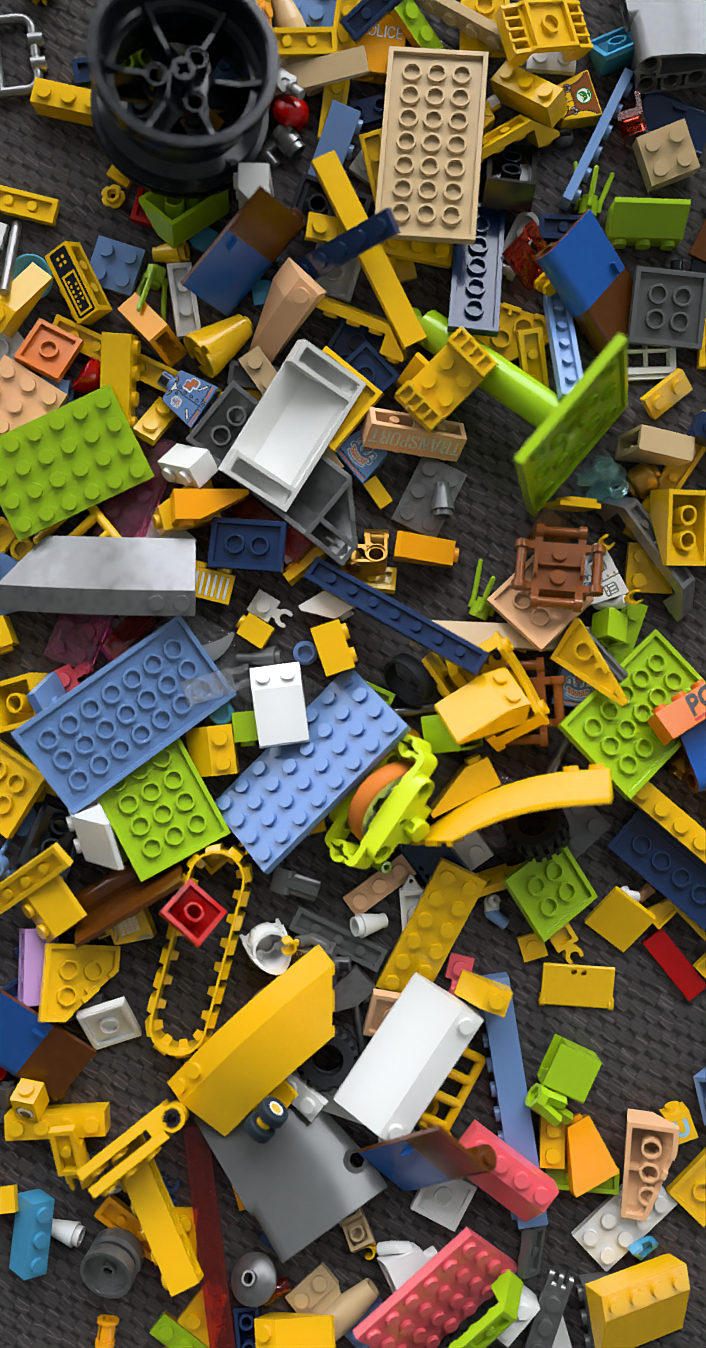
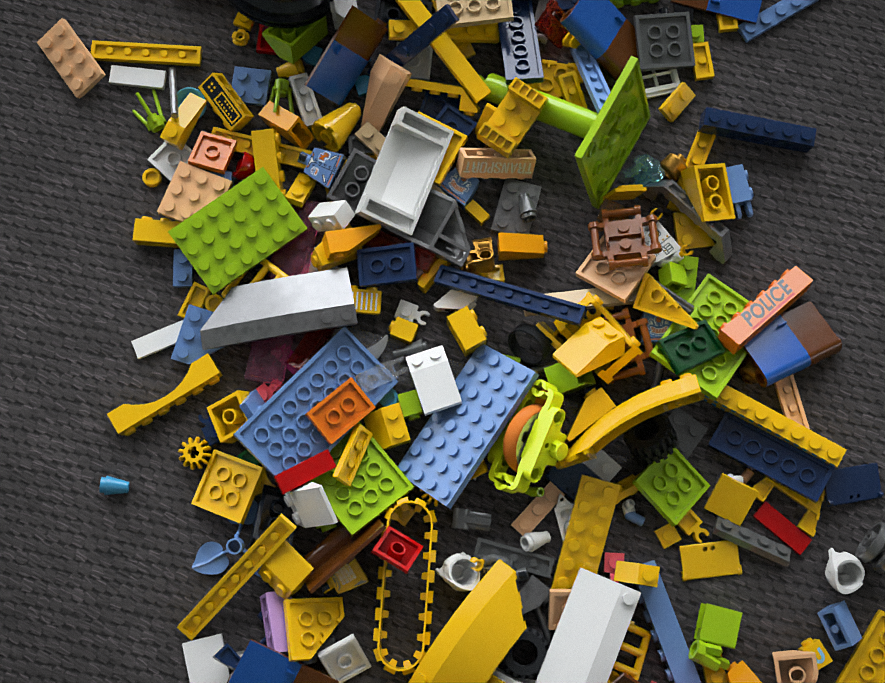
camera: 10 degrees left, 10 degrees down
(95, 794) = (304, 471): none -> red tile
(154, 724) = (340, 411): none -> orange plate
(160, 781) = (352, 455): none -> yellow plate
(305, 652) = (445, 339): medium blue plate -> none
(480, 607) = (571, 282): lime plant -> none
(611, 728) = (690, 347): none -> dark green tile
(633, 974) = (751, 541): none -> dark grey plate
(655, 446) = (677, 140): tan slope -> none

